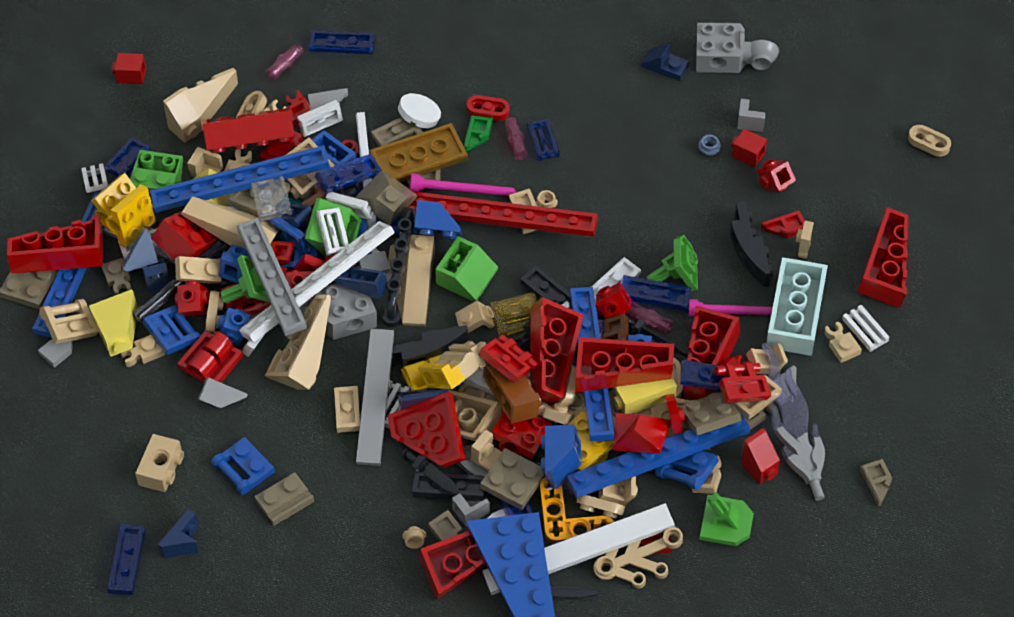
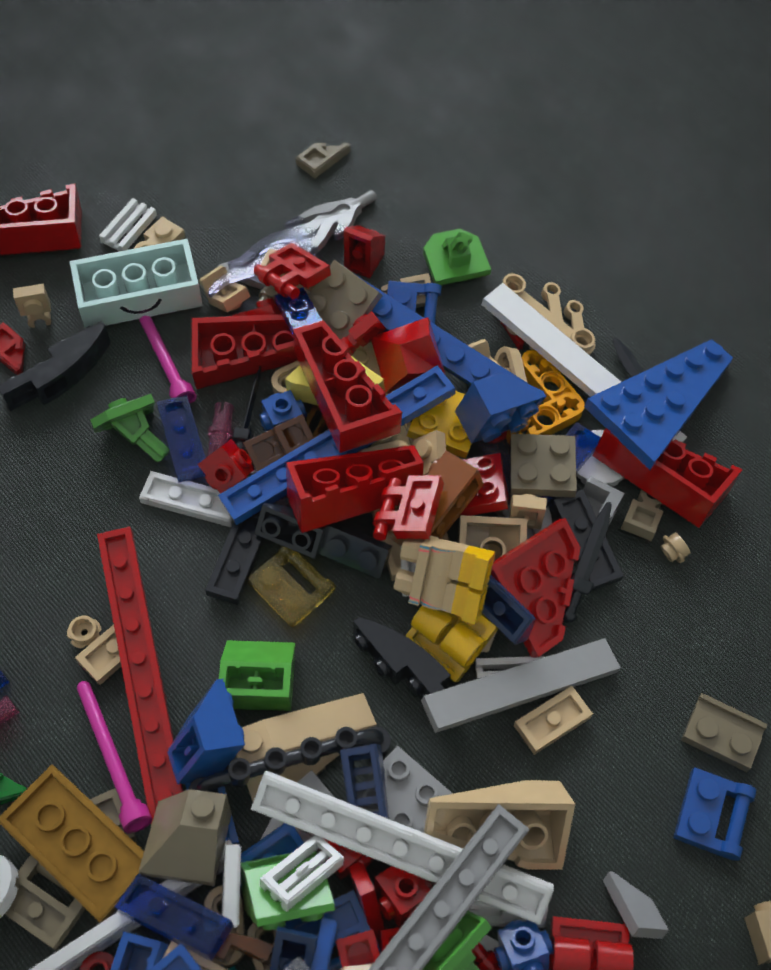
camera: 120 degrees left, 5 degrees up
(475, 316) = (325, 630): tan bracket -> none

